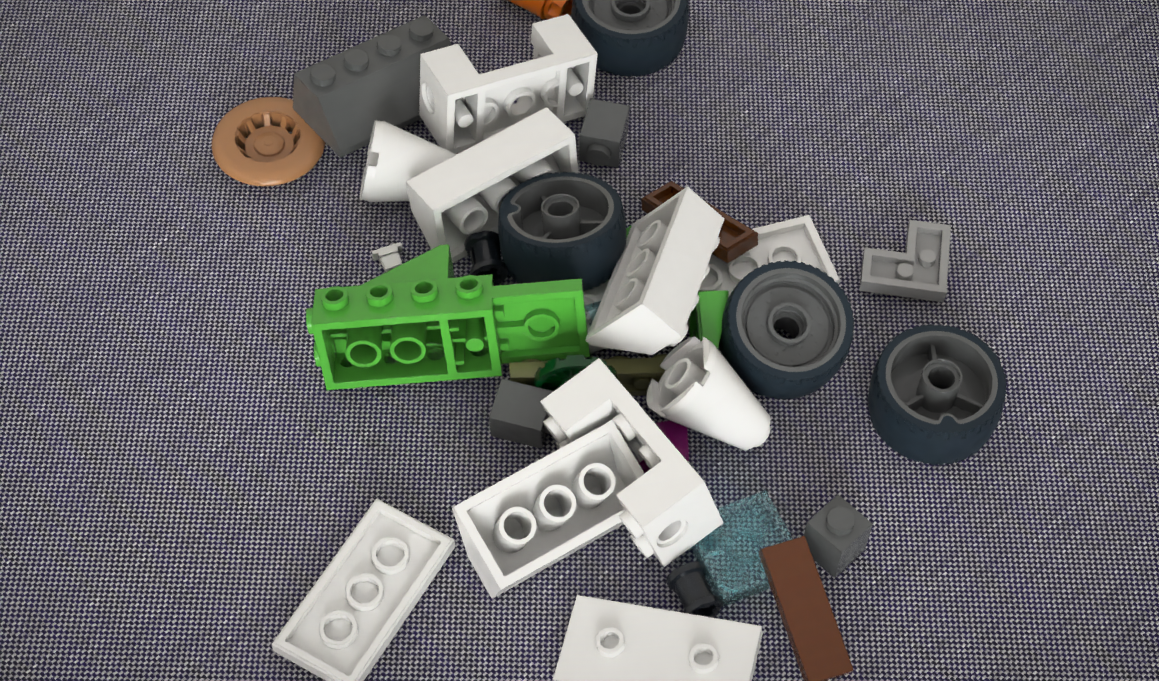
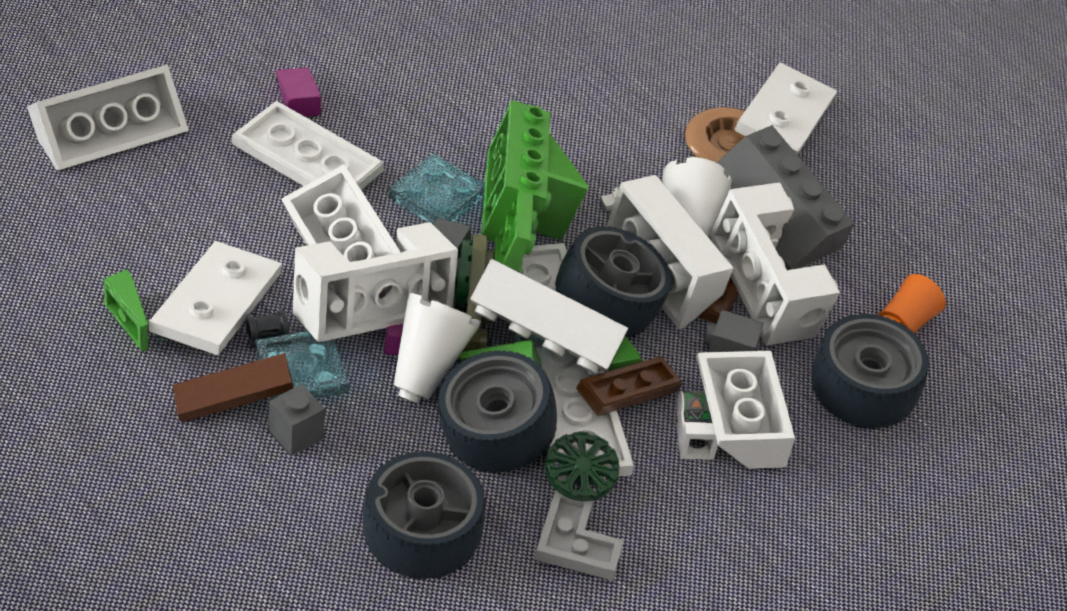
camera: 90 degrees right, 10 degrees down
(214, 84) = (790, 104): none -> white plate
(230, 627) = (299, 91): none -> magenta slope
(405, 442) = (437, 190): none -> clear light blue plate
(712, 109) = (747, 407): none -> white slope
(729, 166) = (695, 423): none -> white leg
(835, 253) = (582, 466): none -> dark green wheel

